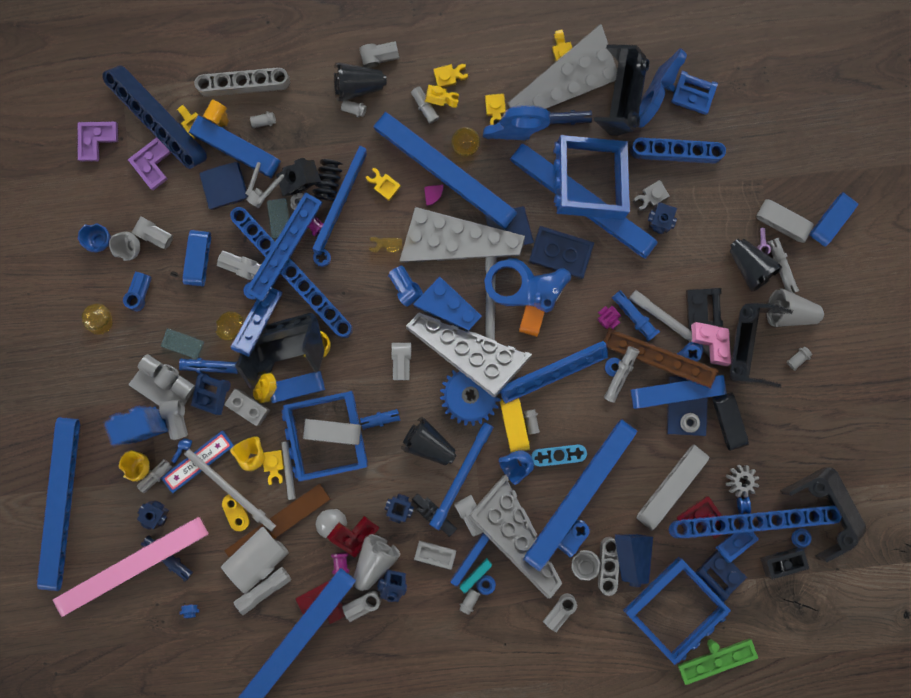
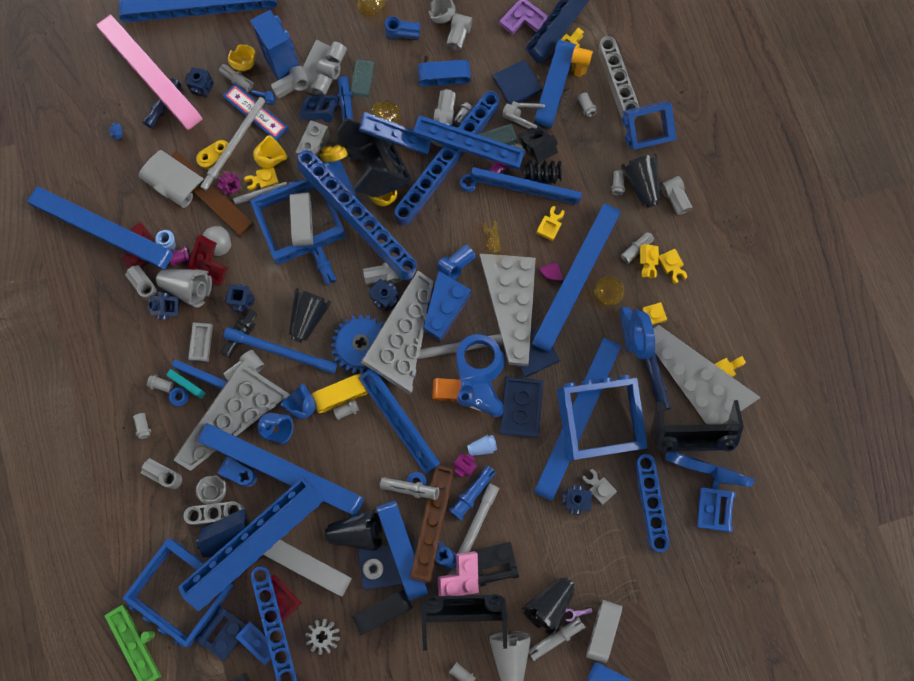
camera: 85 degrees right, 10 degrees down
(243, 243) = (465, 109): none -> light grey pin
(261, 591) = (140, 188): light grey axle -> none
(272, 500) = (232, 186): none -> magenta gear
(302, 43) = (667, 124): none -> blue window
(321, 579) = (166, 239): none -> light blue cone
(328, 375) = (352, 206): none -> blue beam
(417, 363) = (384, 295): none -> dark blue brick
(509, 625) = (141, 426): none -> light grey pin
(533, 488) = (269, 421): none -> blue hair
(552, 449) = (318, 428): dark azure beam -> none
(593, 296) = (484, 445): none -> light blue cone
(650, 533) = (250, 544): none -> blue brick
(652, 432) = (356, 531): none -> black cone
(743, 505) = (297, 643): blue bush -> none

